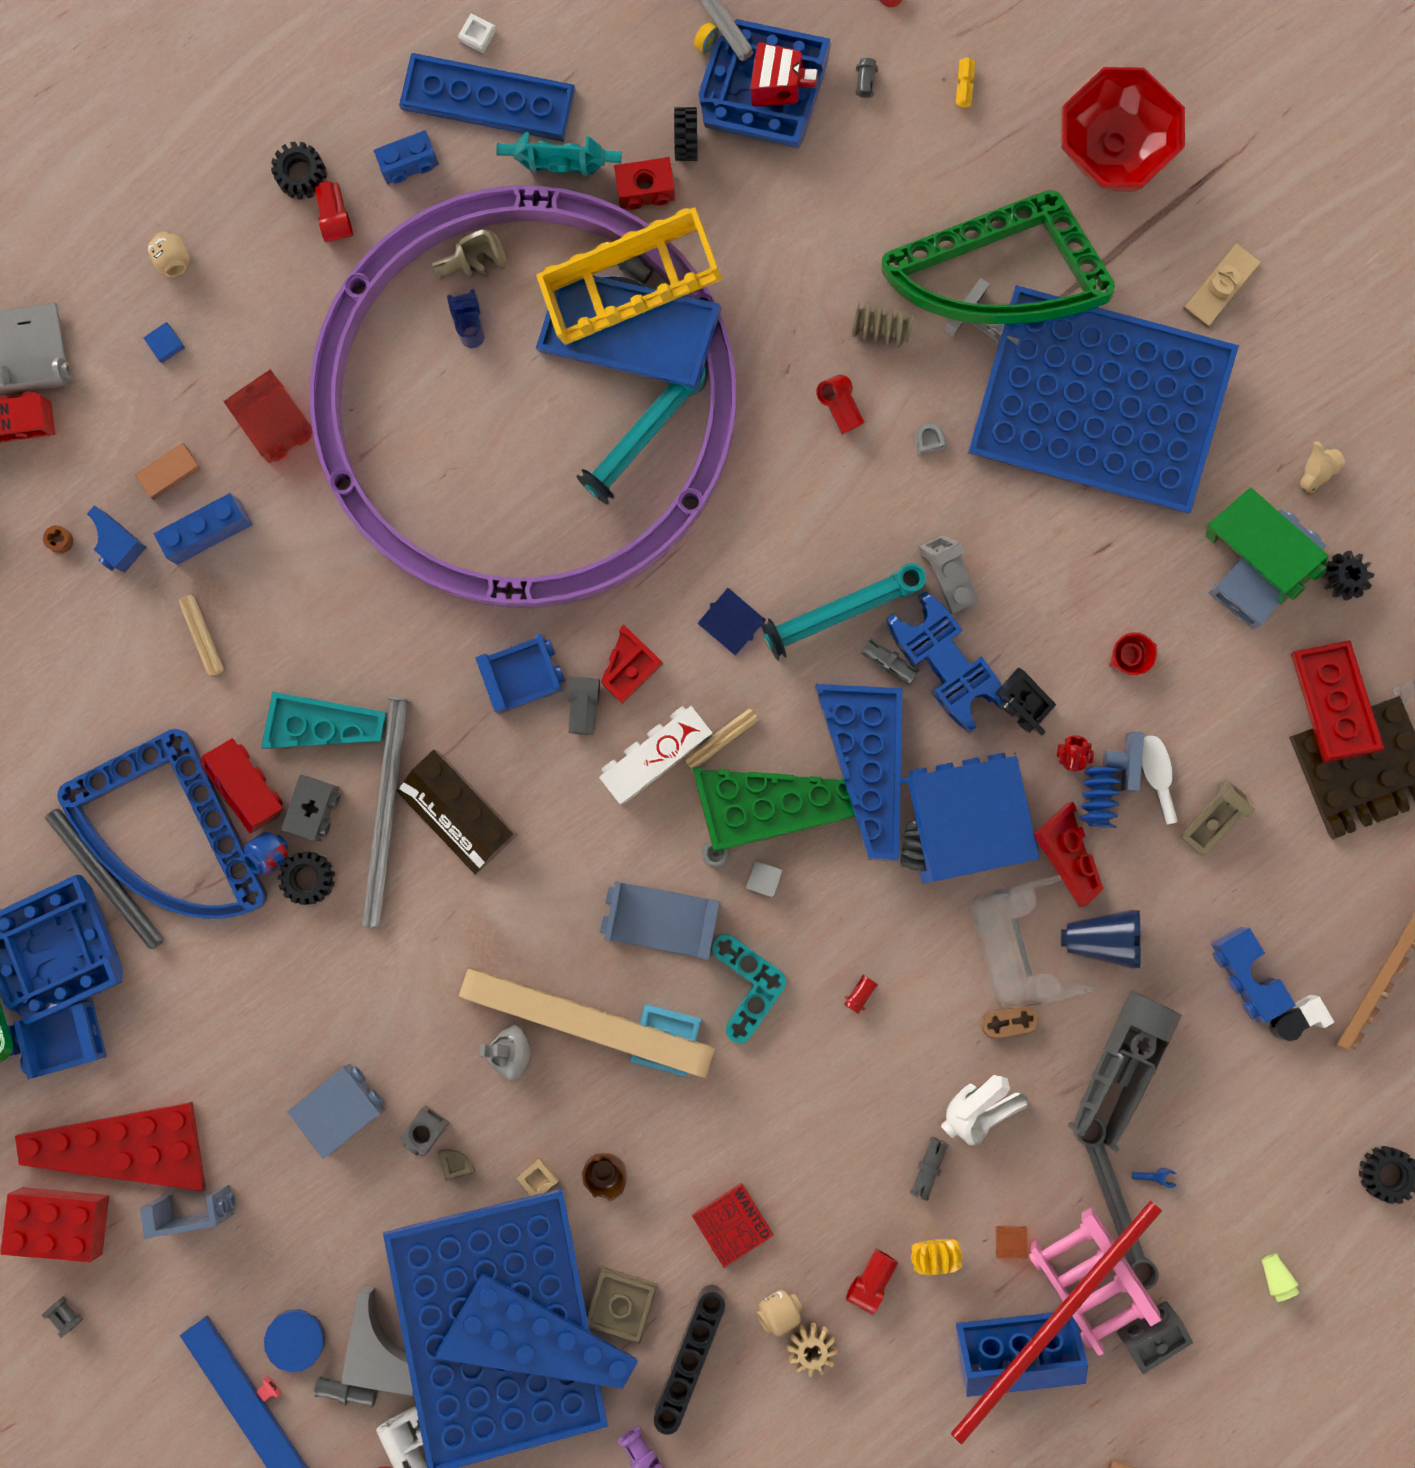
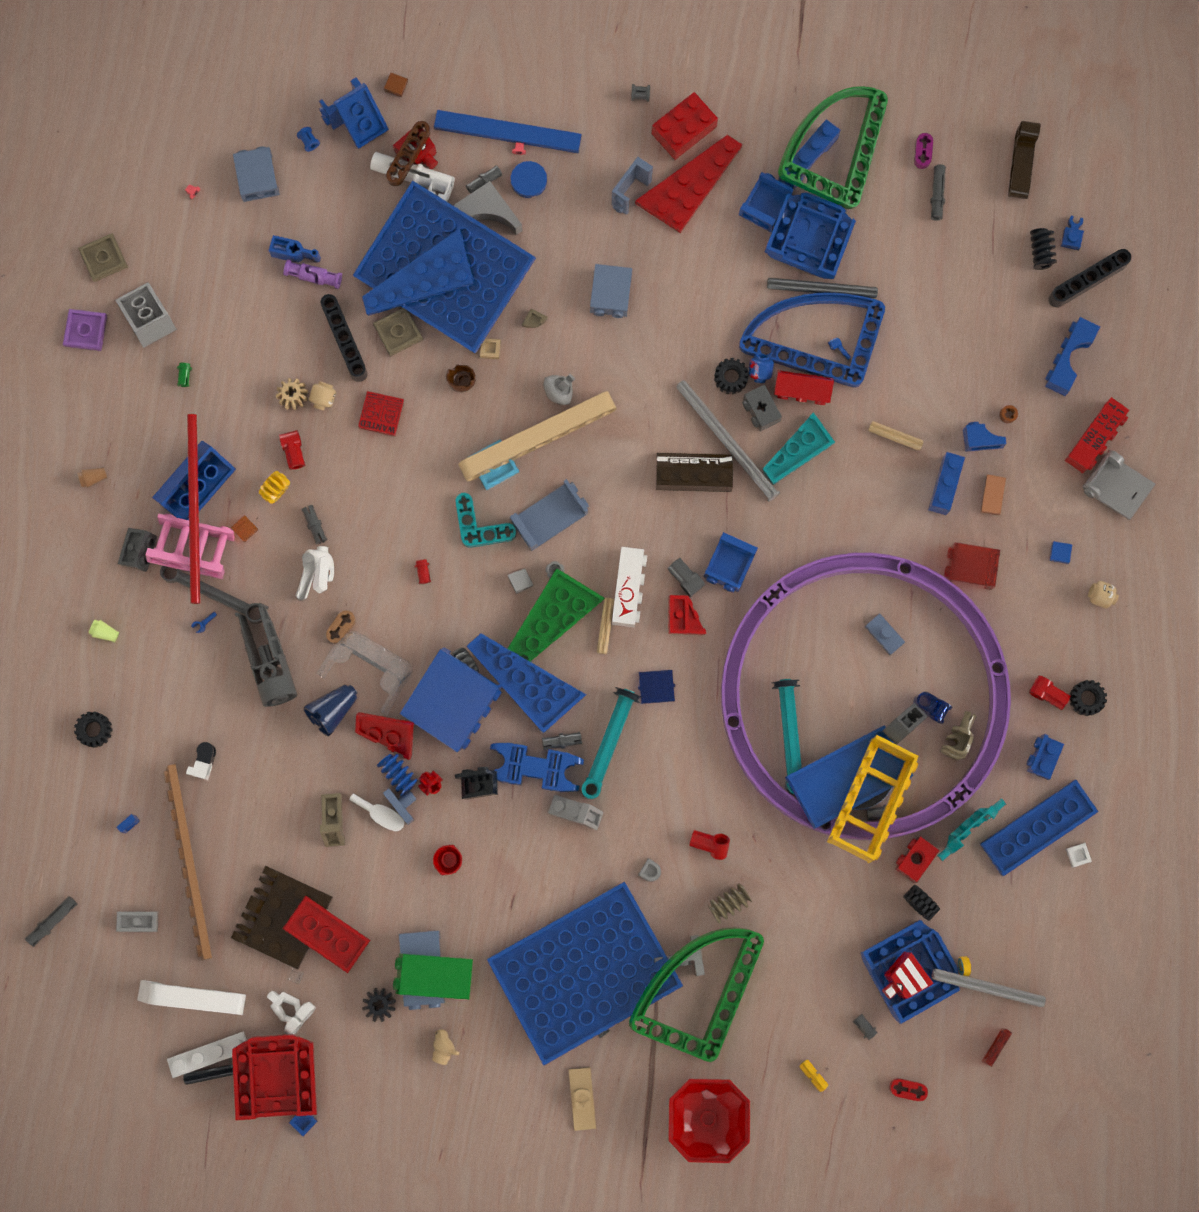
camera: 130 degrees right, 5 degrees down
(154, 799) = (836, 343): none -> blue hand
(429, 1119) = (562, 327): flat silver brick -> none
(436, 439) = (884, 634): none -> sand blue tile
(514, 321) = (905, 723): none -> dark grey brick
(1237, 954) = (229, 753): blue arch -> none

